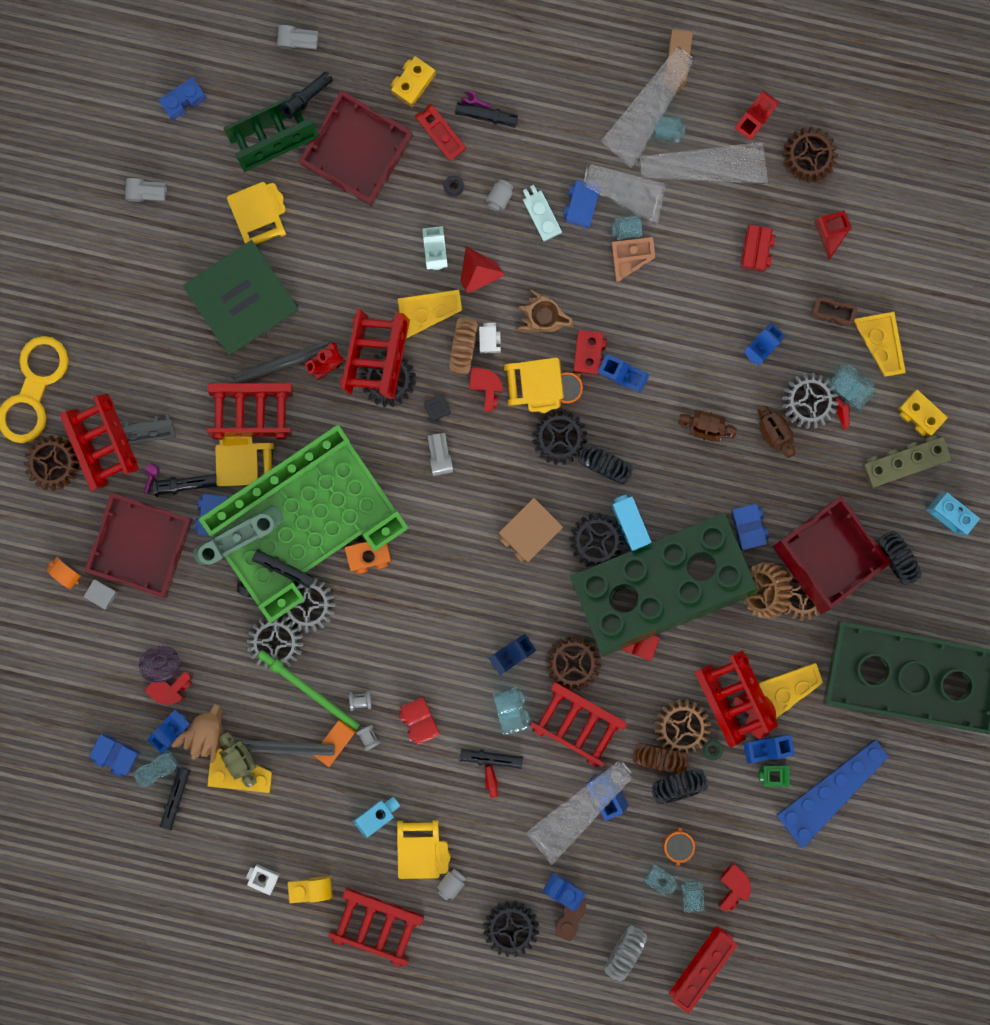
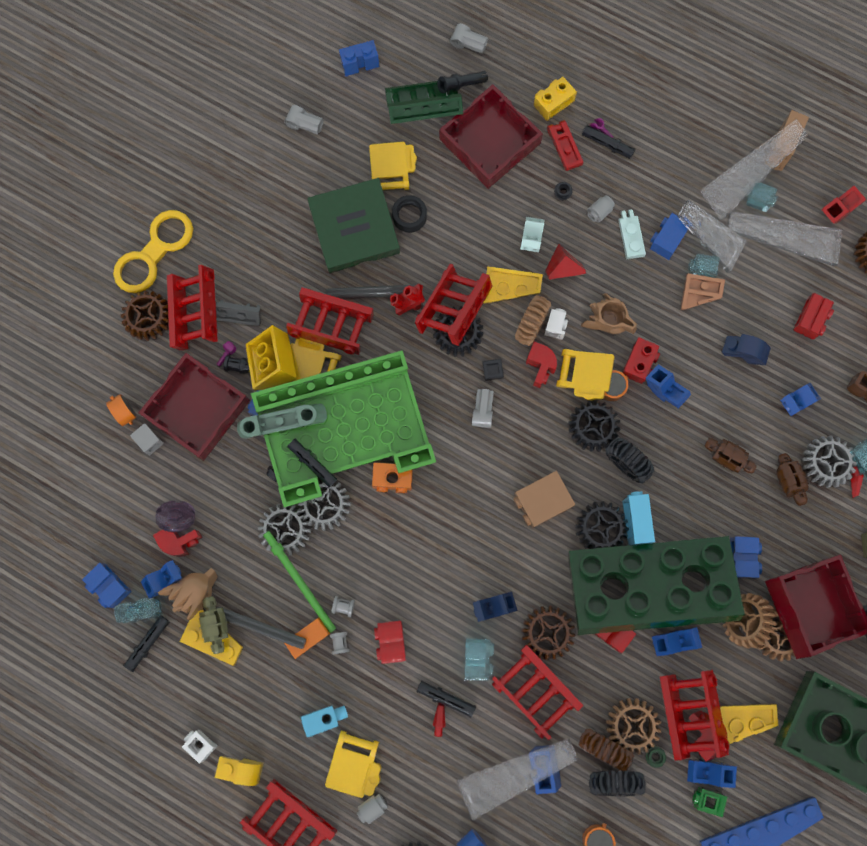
camera: 20 degrees right, 10 degrees down
(202, 472) = (270, 359): none -> yellow slope
(298, 248) = (404, 201): none -> black tyre
(695, 306) = (747, 347): none -> dark blue brick
(702, 632) = (677, 641): none -> blue brick

